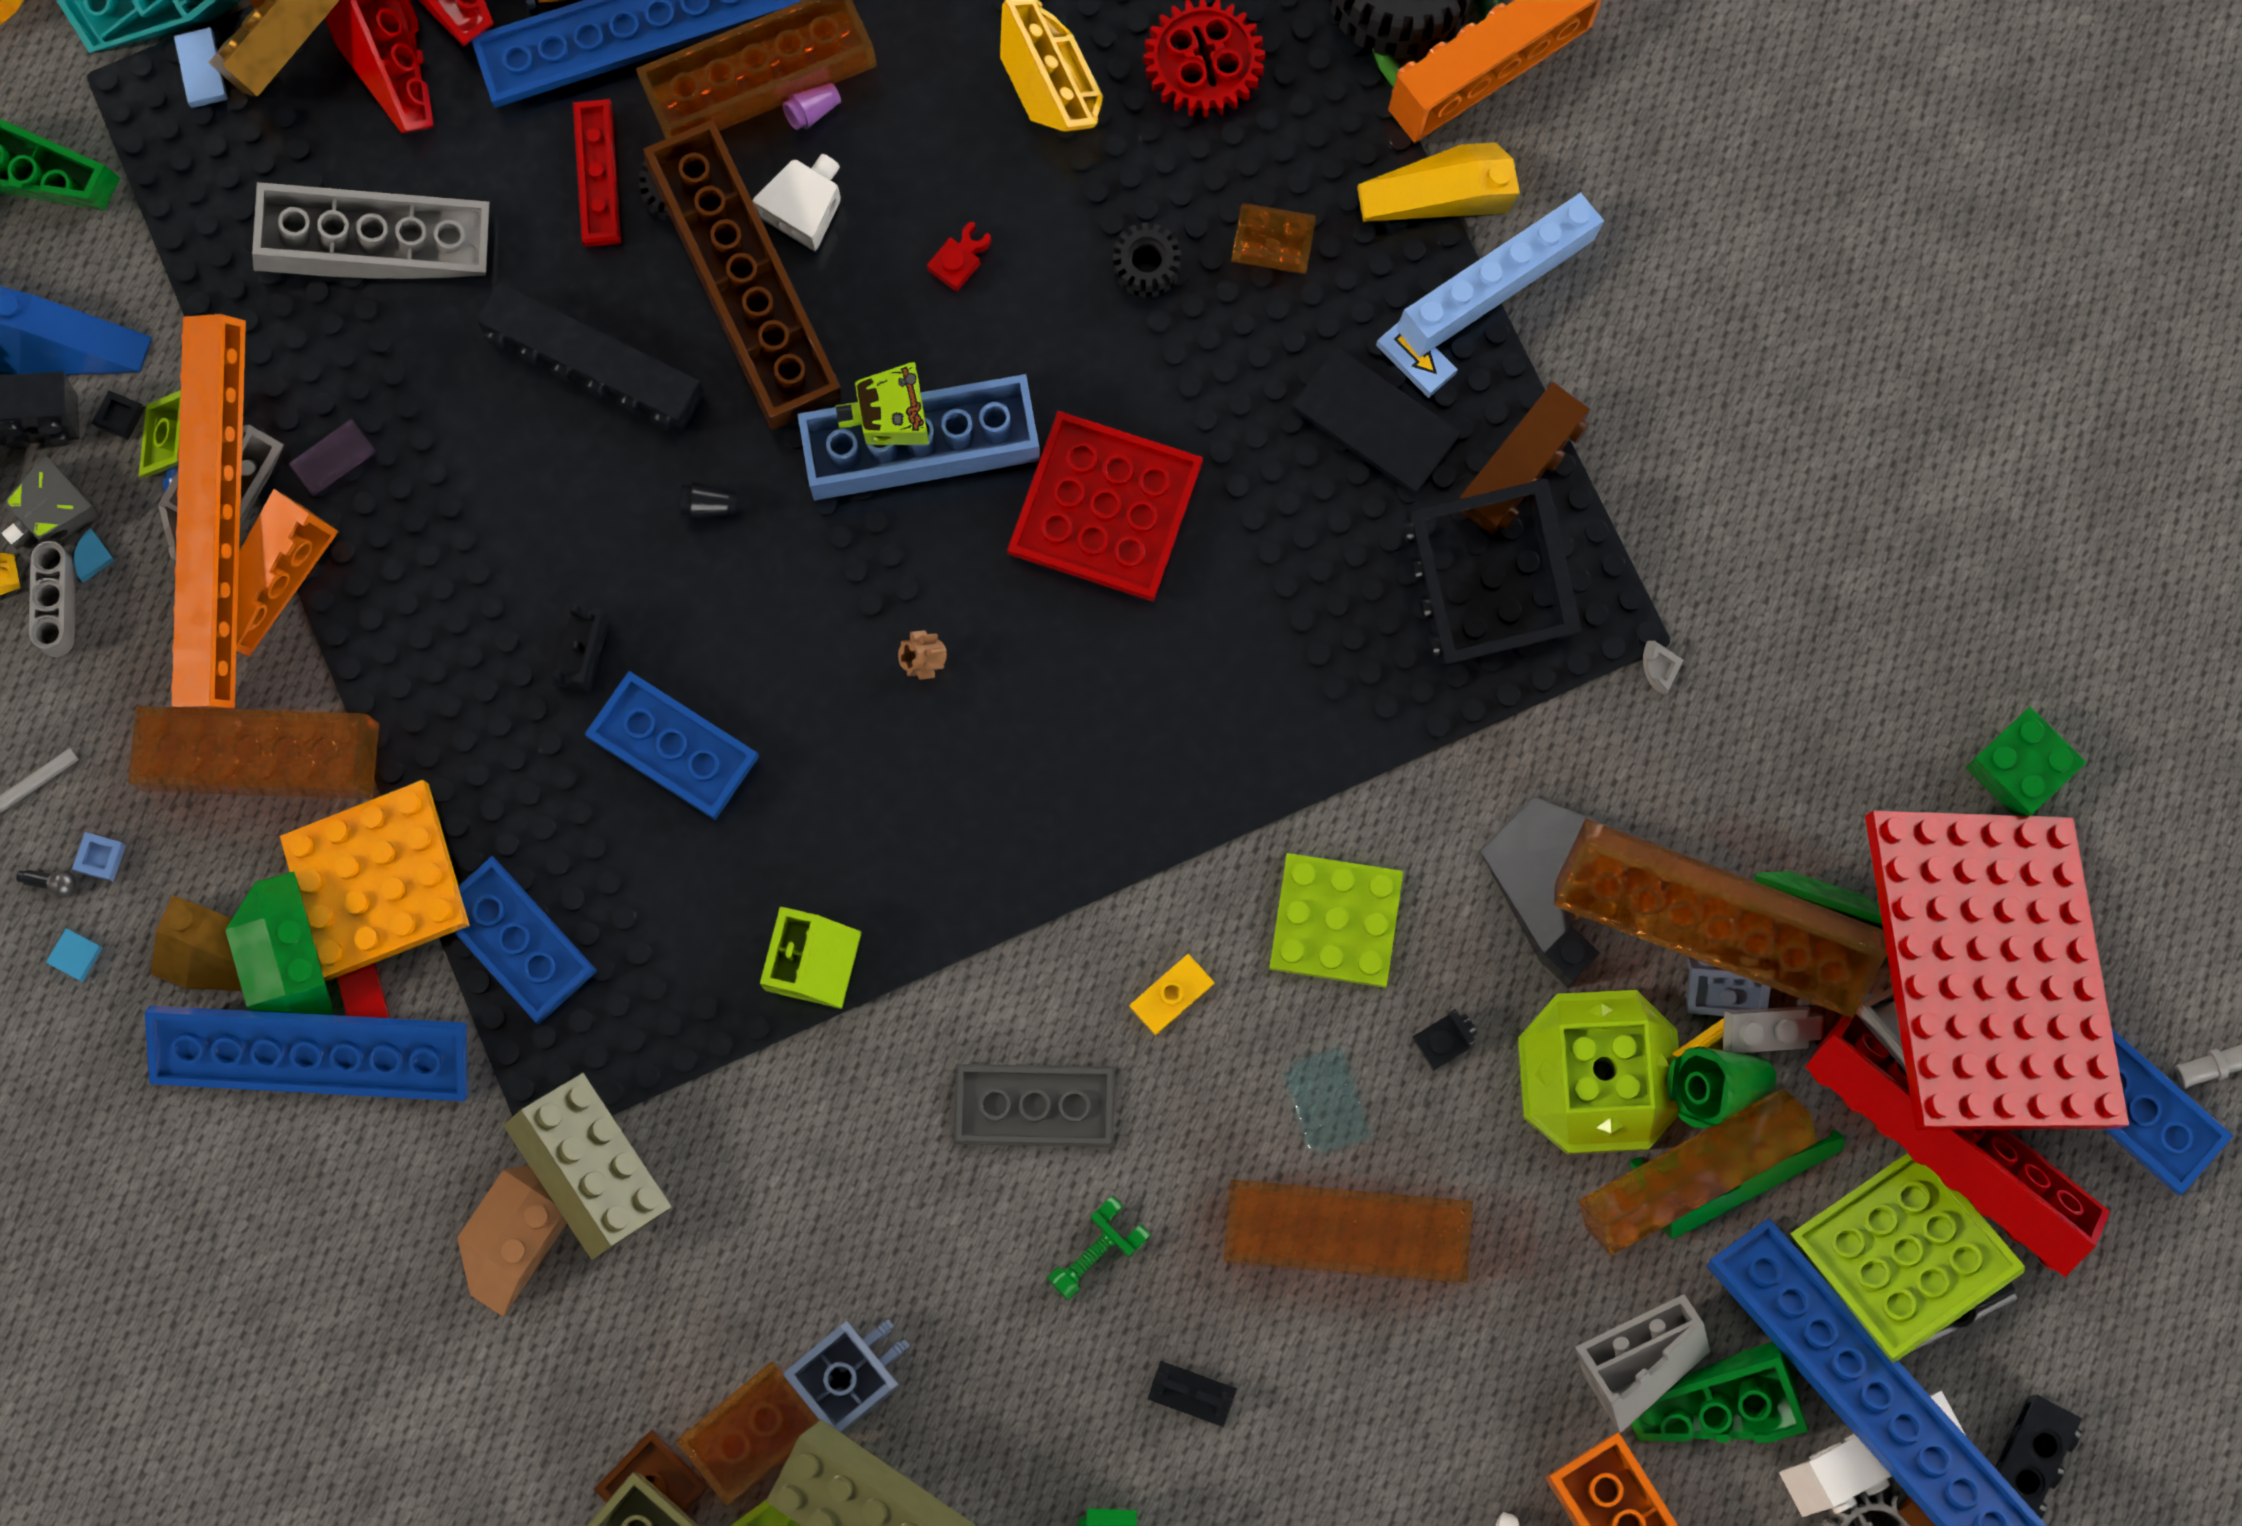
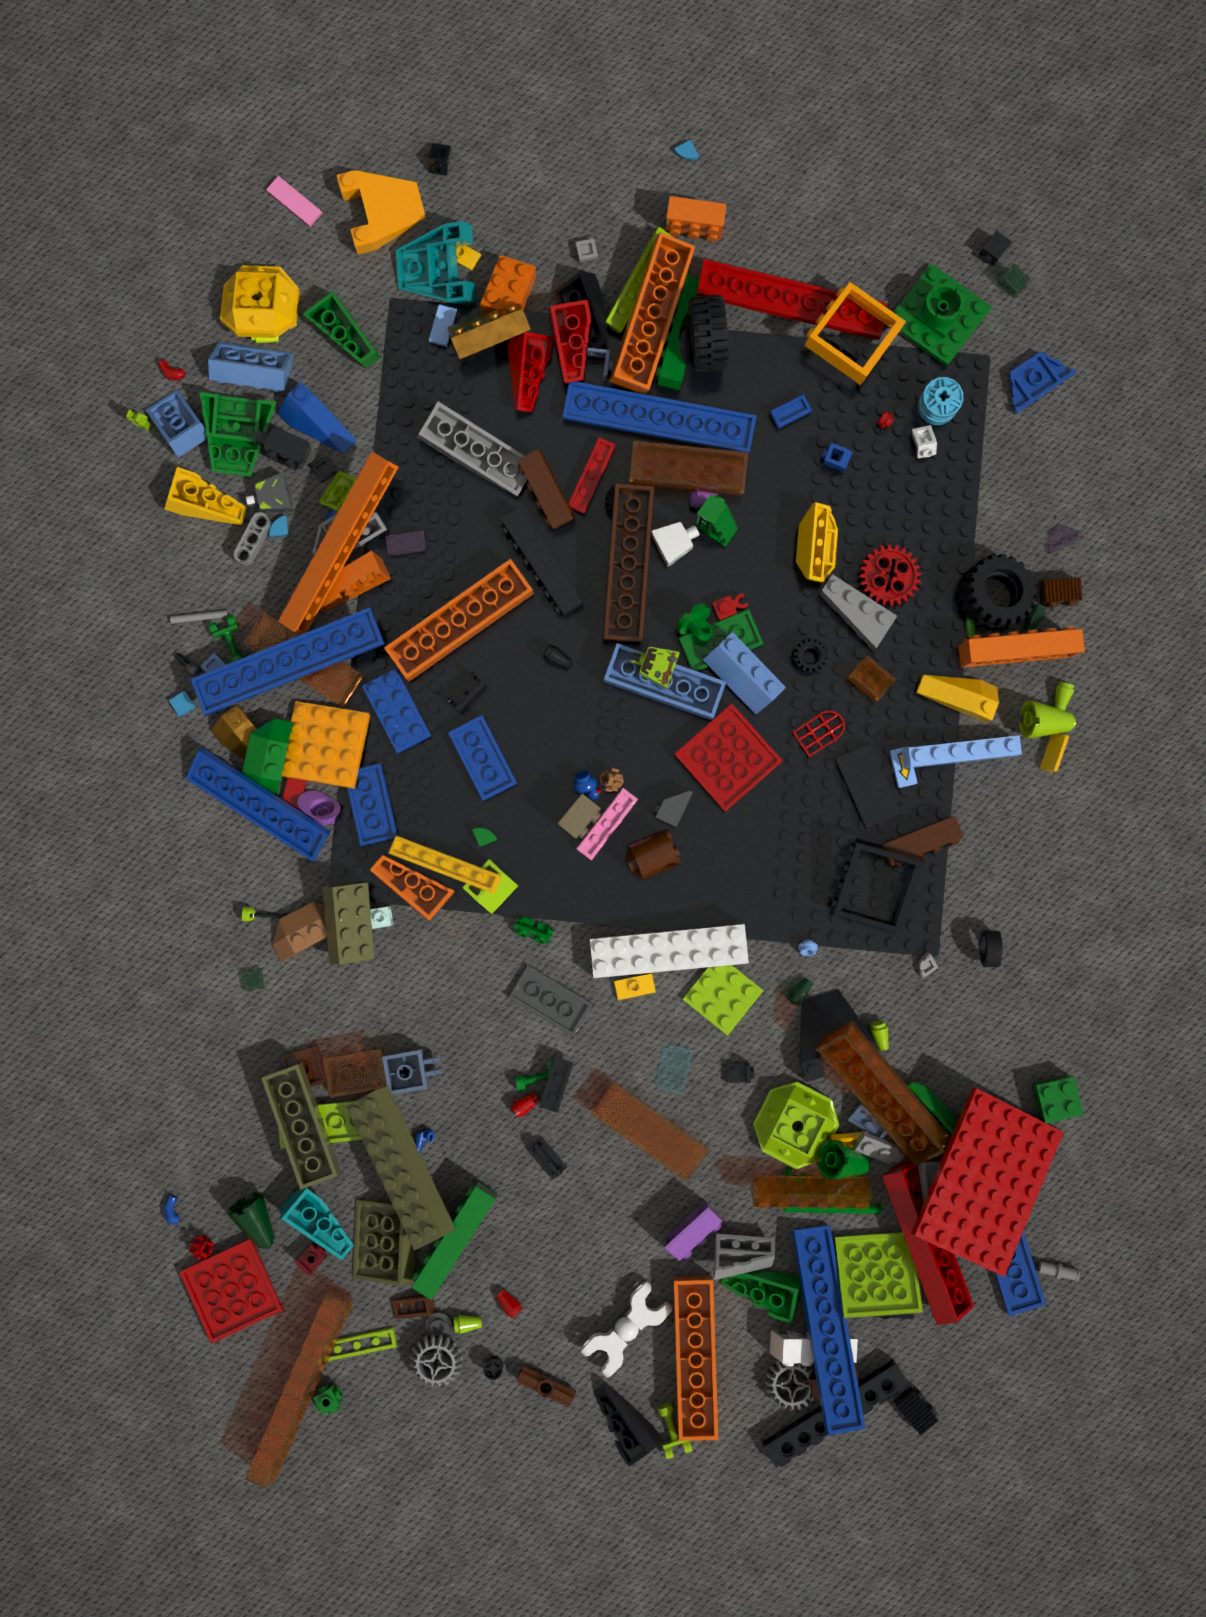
camera: 25 degrees right, 10 degrees up
(133, 822) = (216, 633): none -> green bar
(224, 764) = (287, 661): none -> blue plate
(398, 1260) = (250, 914): none -> hinge
(424, 995) = (319, 807): none -> medium lavender piece
(468, 1378) = (253, 980): none -> clear green tile
(473, 751) = (396, 711): none -> blue plate
(497, 532) = (459, 620): none -> orange brick
(529, 230) = (546, 488): none -> reddish brown brick
(644, 1128) = (381, 917): none -> light aqua brick
(677, 1040) = (415, 889): none -> orange wedge
(706, 961) = (445, 864): none -> yellow tile
(751, 880) = (484, 836): none -> green tile
(852, 121) = (716, 520): none -> green wedge
(879, 686) = (586, 783): none -> blue animal
(901, 746) = (579, 817): none -> dark tan brick
(915, 308) = (696, 622): none -> green tile
(915, 1003) = (524, 928): none -> green hinge
(945, 1482) = (423, 1137): none -> blue arm
(958, 738) = (607, 824): none -> bright pink tile
(979, 319) = (740, 624): none -> green tile
(1051, 344) = (744, 673): none -> medium blue slope
(1058, 644) = (672, 808): none -> dark grey slope
(1069, 738) = (652, 854): none -> reddish brown cylinder
(1093, 1319) = (524, 1104): none -> red cone
(1130, 1245) = (556, 1084): none -> black hinge
(1183, 140) = (859, 611): none -> light grey wedge
(1196, 892) = (669, 951): none -> white brick
(1242, 392) = (817, 739): none -> red window
(1437, 753) = (808, 948): none -> light blue plate
(1467, 838) = (798, 993): none -> clear green cone
(1532, 1369) = (692, 1231): none -> medium lavender slope
(1607, 148) = (1044, 720): none -> lime cone
(1614, 92) = (1063, 694): none -> lime cone
(1652, 826) = (879, 1032): none -> lime cone
(1658, 193) = (1054, 752): none -> yellow slope
(1753, 572) = (991, 948): none -> black tyre
(2126, 1463) = (916, 1411): none -> black brick

